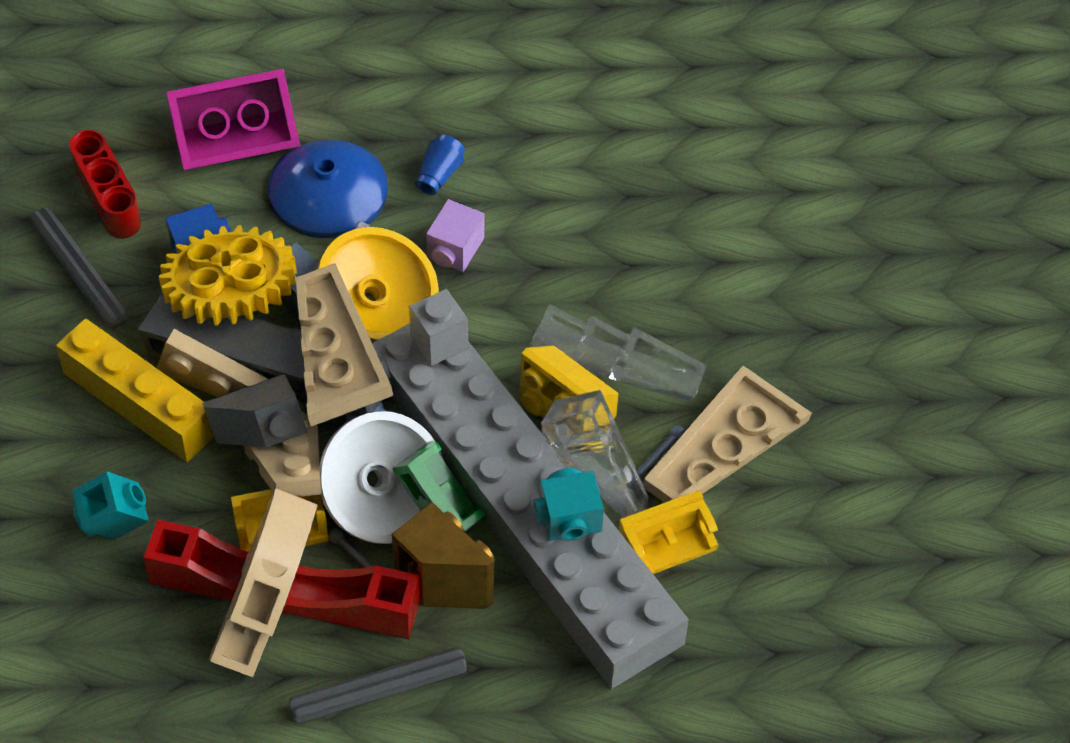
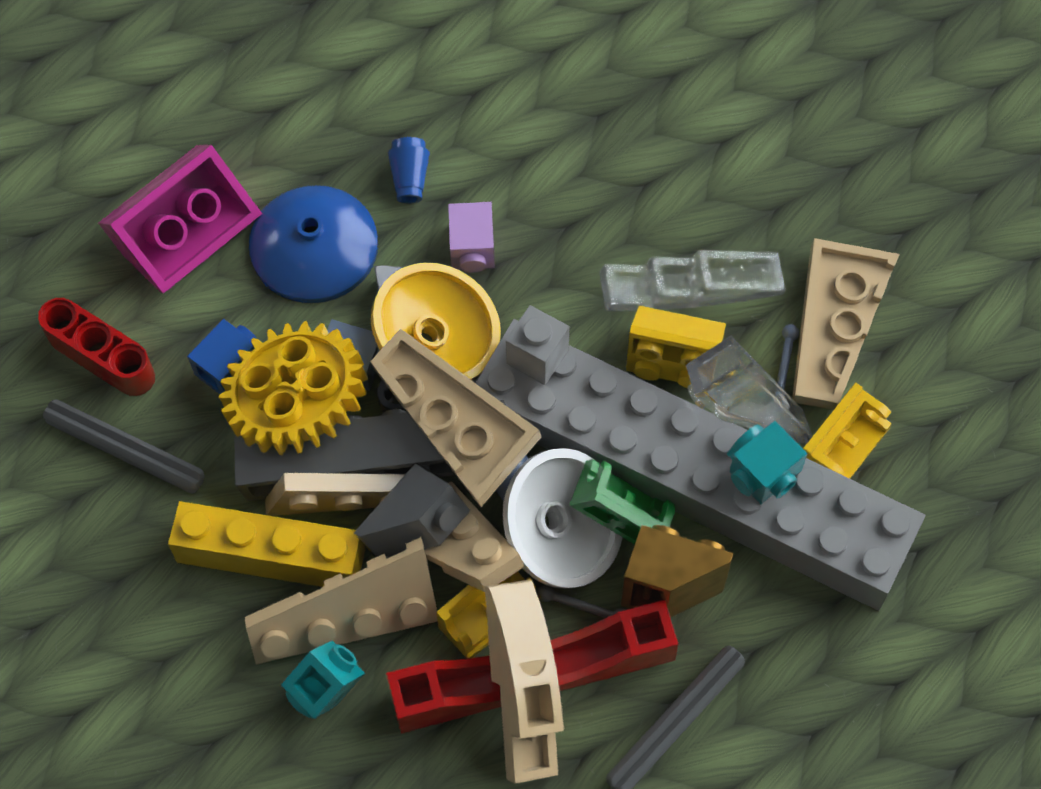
camera: 25 degrees left, 10 degrees up
(183, 467) = (372, 602): none -> tan wing

